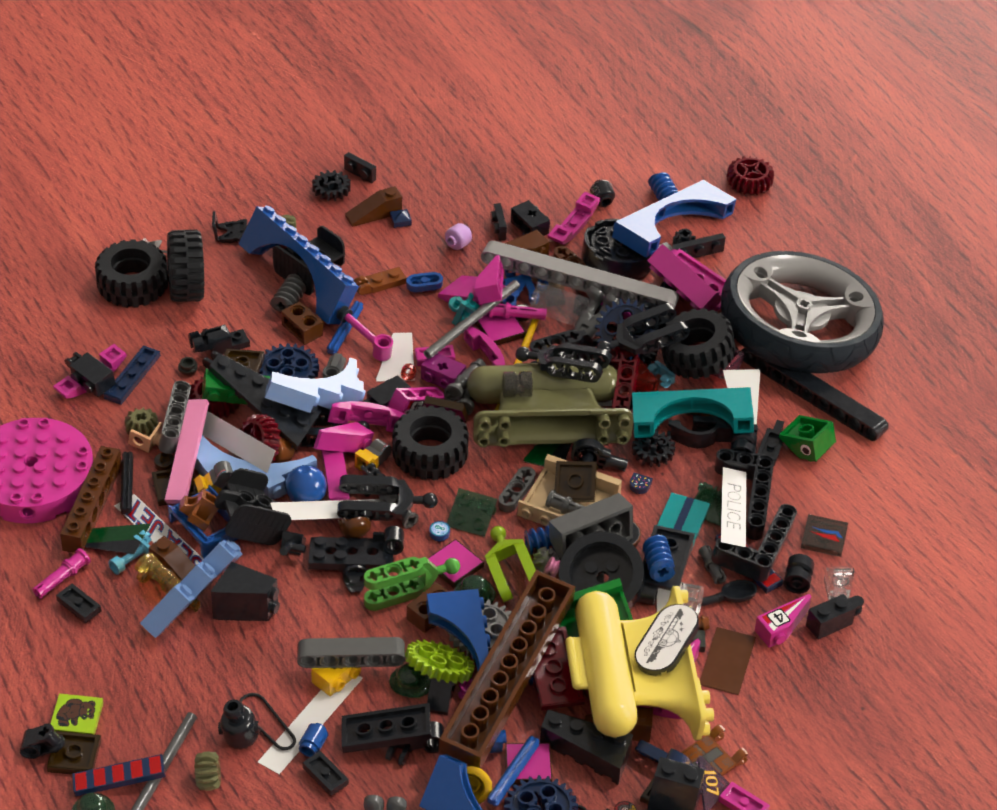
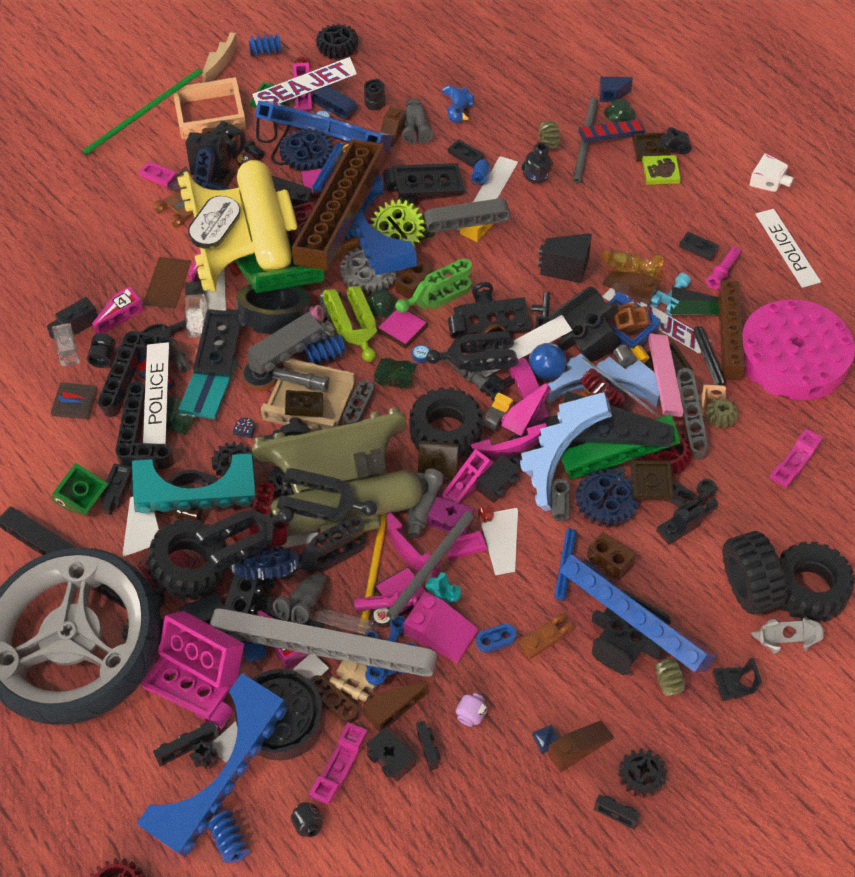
camera: 175 degrees right, 10 degrees up
(90, 373) = (794, 450): black brick -> none
(132, 375) = (756, 473): dark blue tile -> none
(191, 587) = (605, 249): medium blue arch -> none
(278, 718) = (532, 204): black piece -> none
(288, 293) = (638, 580): dark grey piece -> none
(381, 343) = (524, 538): dark pink piece -> none
(490, 282) = (418, 592): dark pink slope -> none
(659, 558) = (224, 322): blue piece -> none

